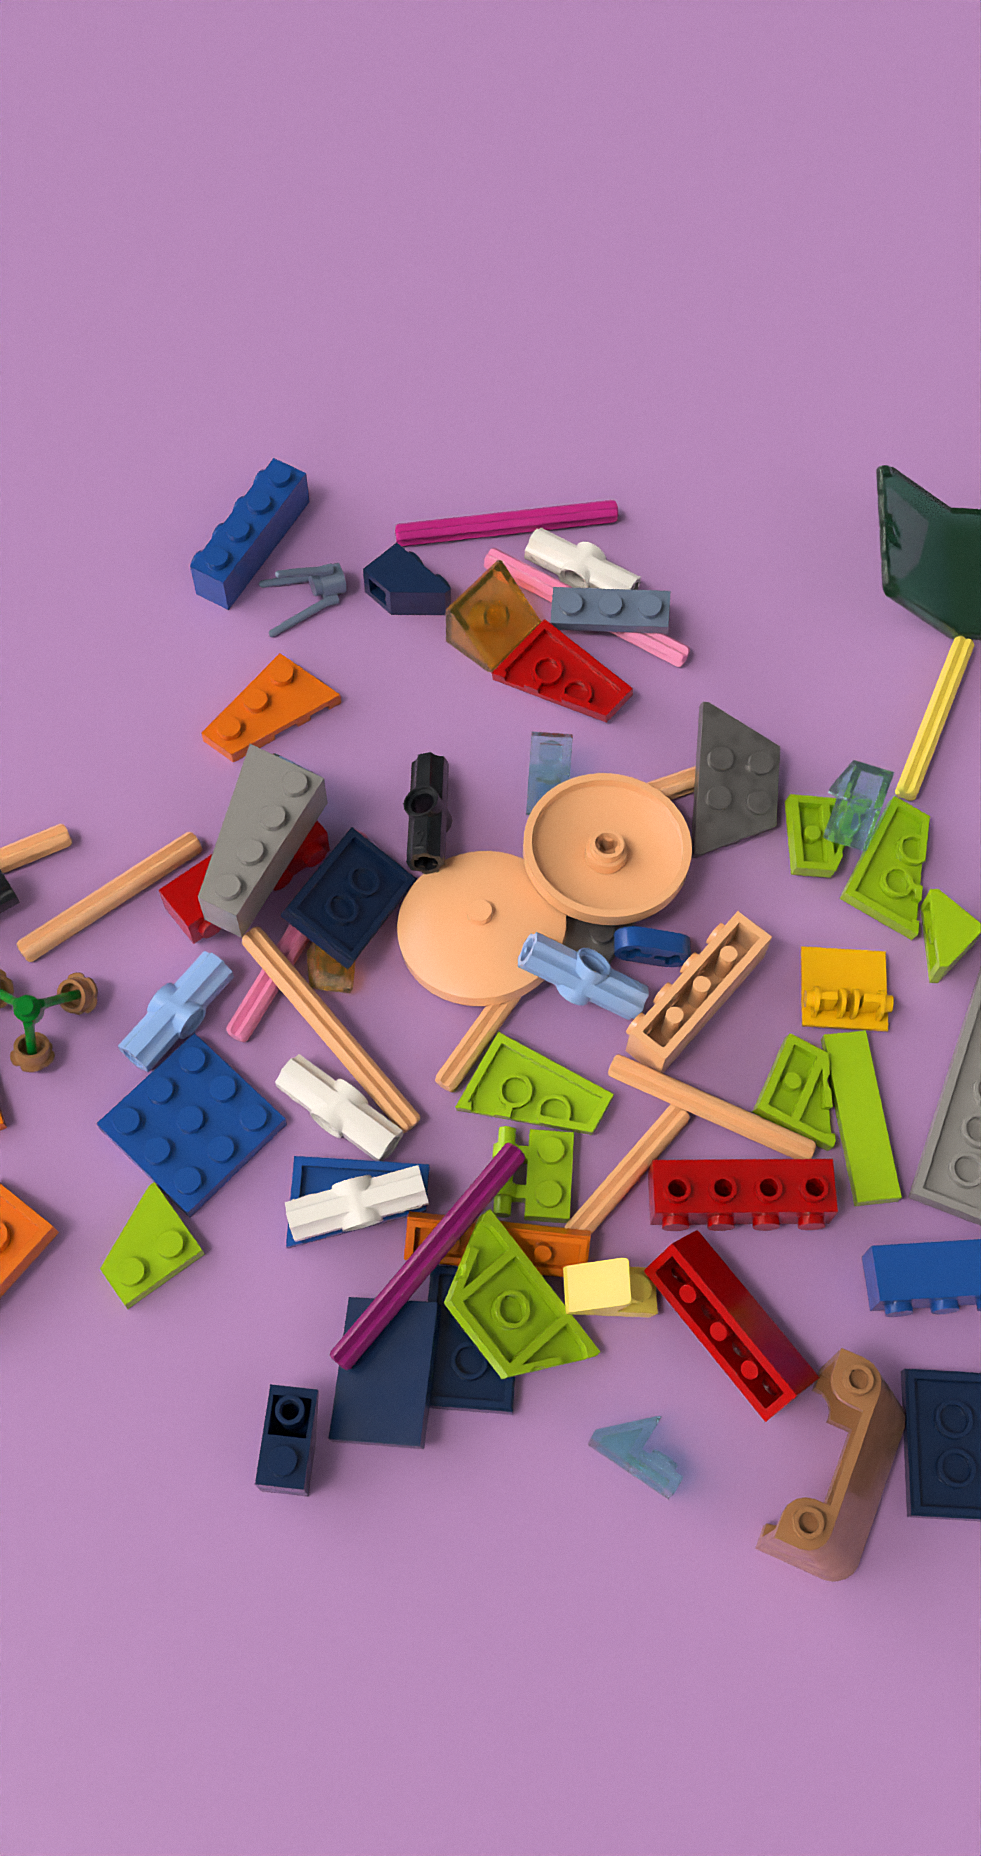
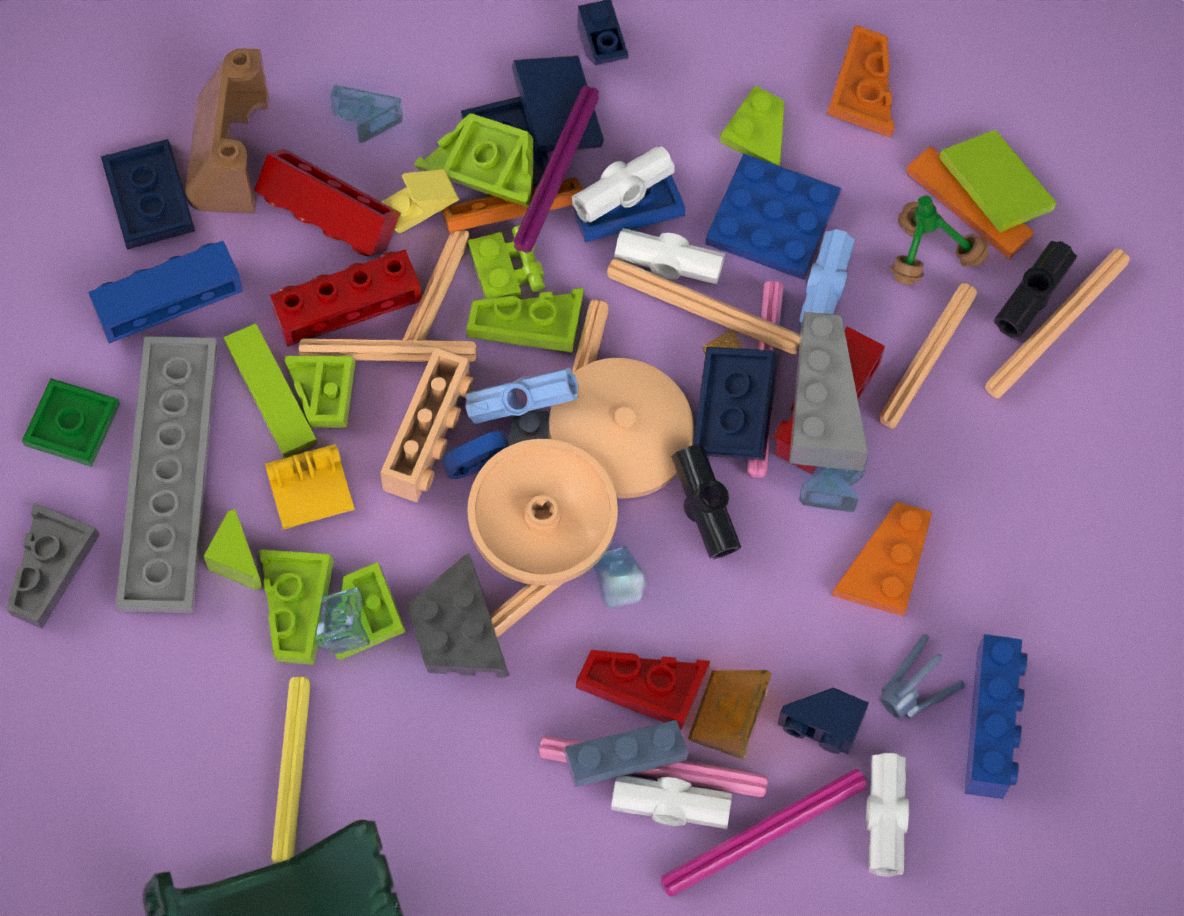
camera: 160 degrees right, 0 degrees up
(390, 495) = (887, 814): none -> white piece

